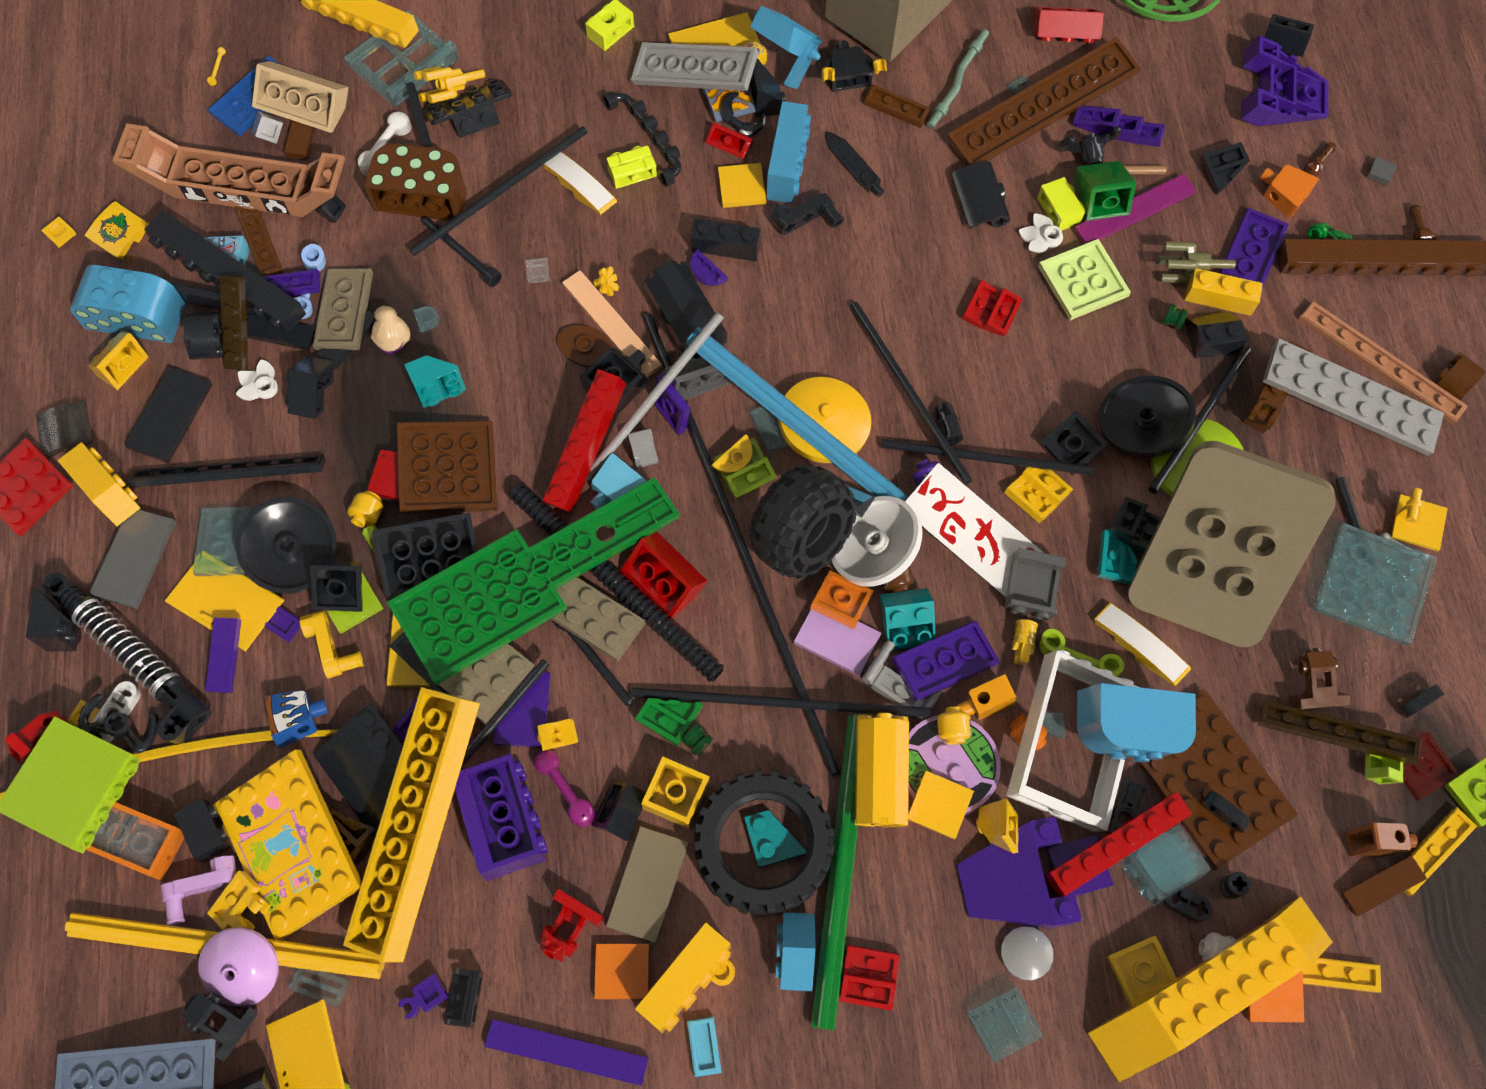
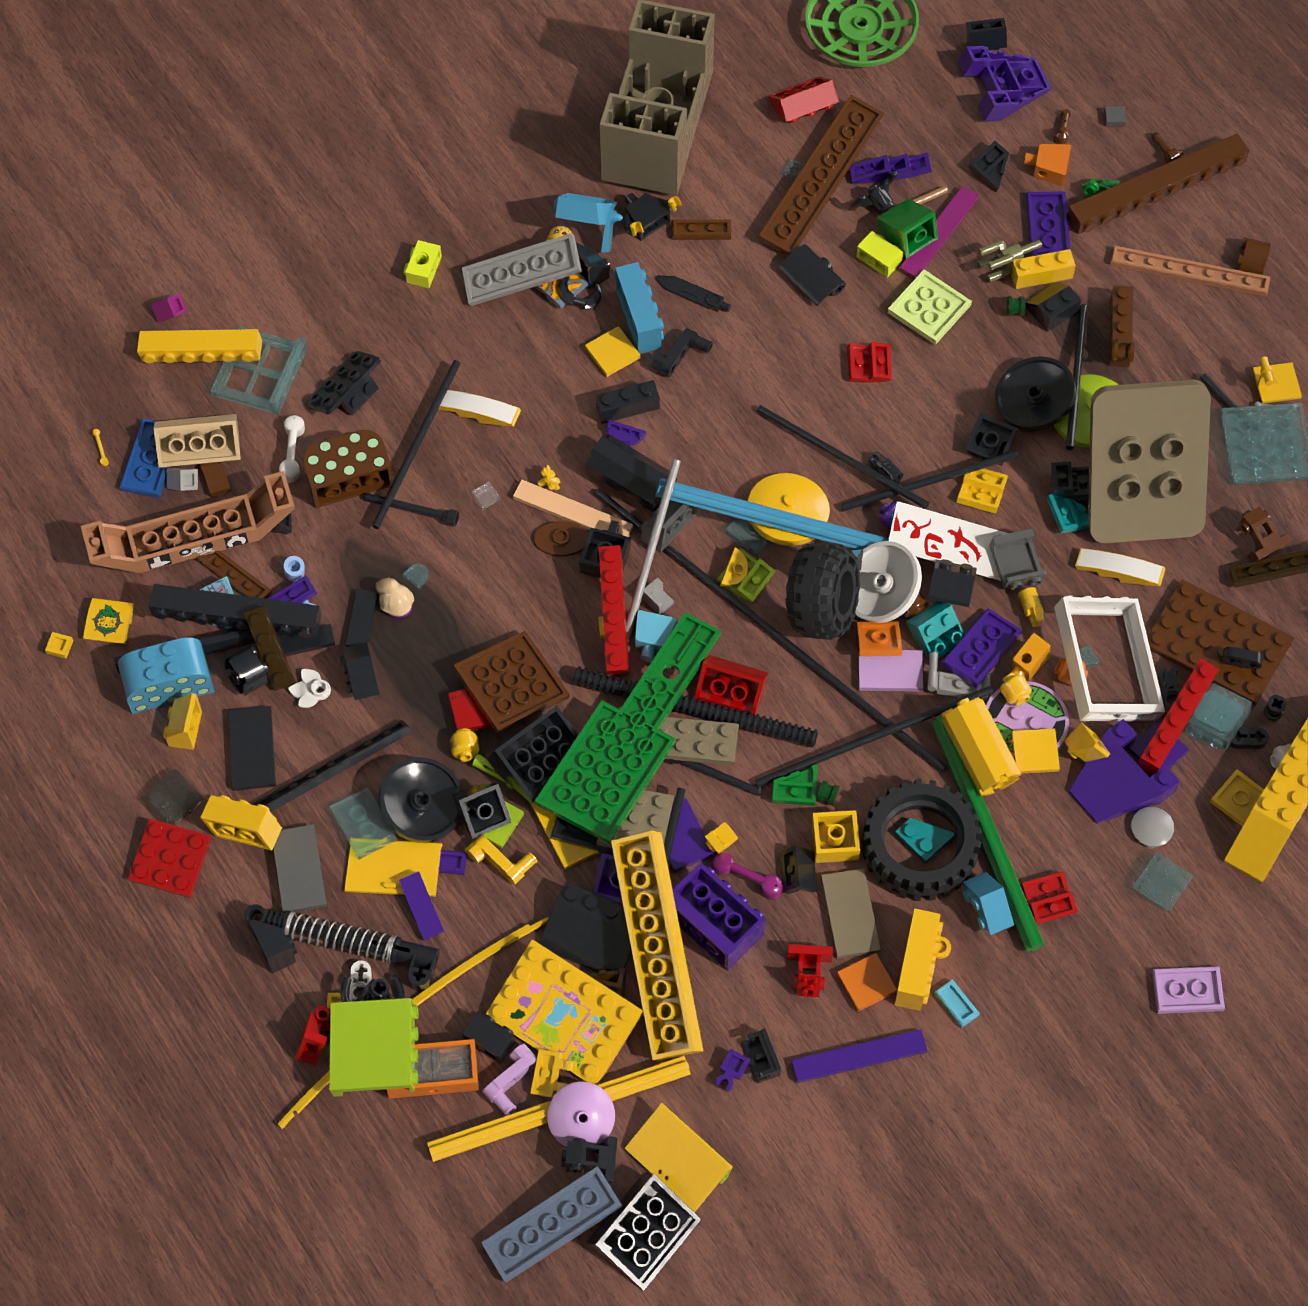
camera: 25 degrees left, 5 degrees down
(293, 716) = (507, 922): blue torso -> none
(340, 993) = (646, 1093): clear light blue tile -> none
(343, 309) = (344, 598): dark tan tile -> none
(418, 113) = (309, 413): black tile -> none
(434, 380) = (460, 618): teal slope -> none
(447, 82) = (316, 374): yellow plant -> none
(631, 166) = (513, 376): neon yellow brick -> none
(649, 125) = (547, 371): black bar -> none
(673, 407) = (667, 553): dark purple tile -> none
(722, 32) = (524, 231): yellow tile -> none
(729, 140) = (579, 318): red slope -> none
(942, 107) = (740, 215): sand green bar -> none
(949, 577) = (952, 582): none -> black slope
(1039, 234) = (874, 285): white plate -> none
(1054, 640) = (1053, 594): lime piece -> none
(1135, 721) = (1145, 621): dark azure brick -> none
(1353, 397) = (1182, 308): light grey plate -> none

